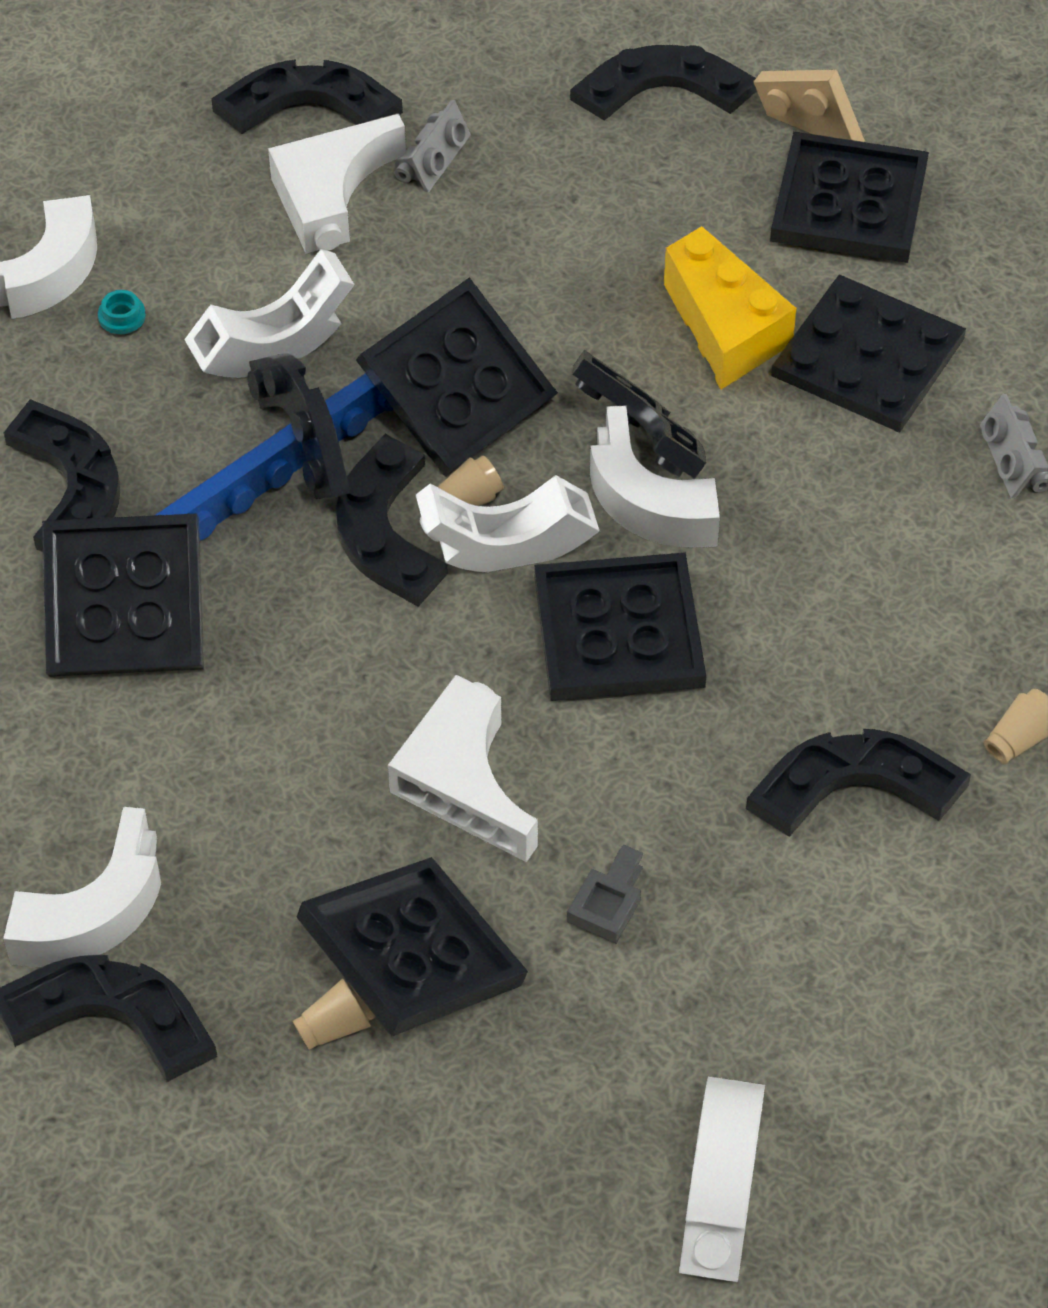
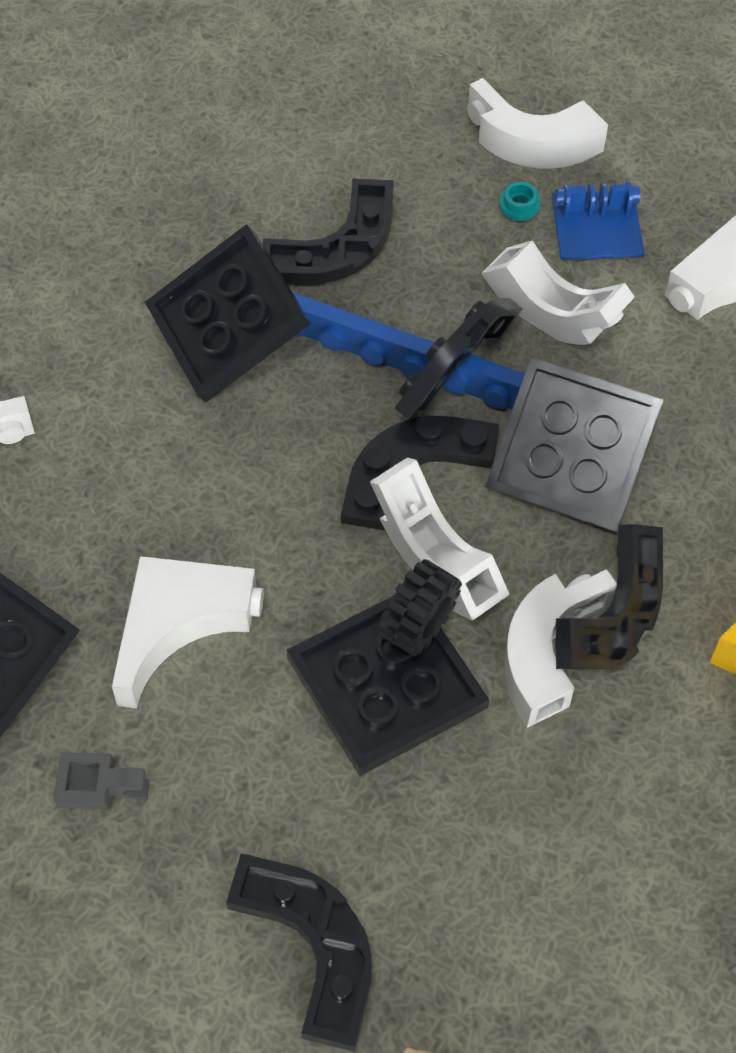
camera: 65 degrees right, 5 degrees up
(189, 262) = (598, 222): none -> blue hinge
(474, 482) = (474, 505): tan cone -> none
(583, 549) = (419, 607): none -> black tyre

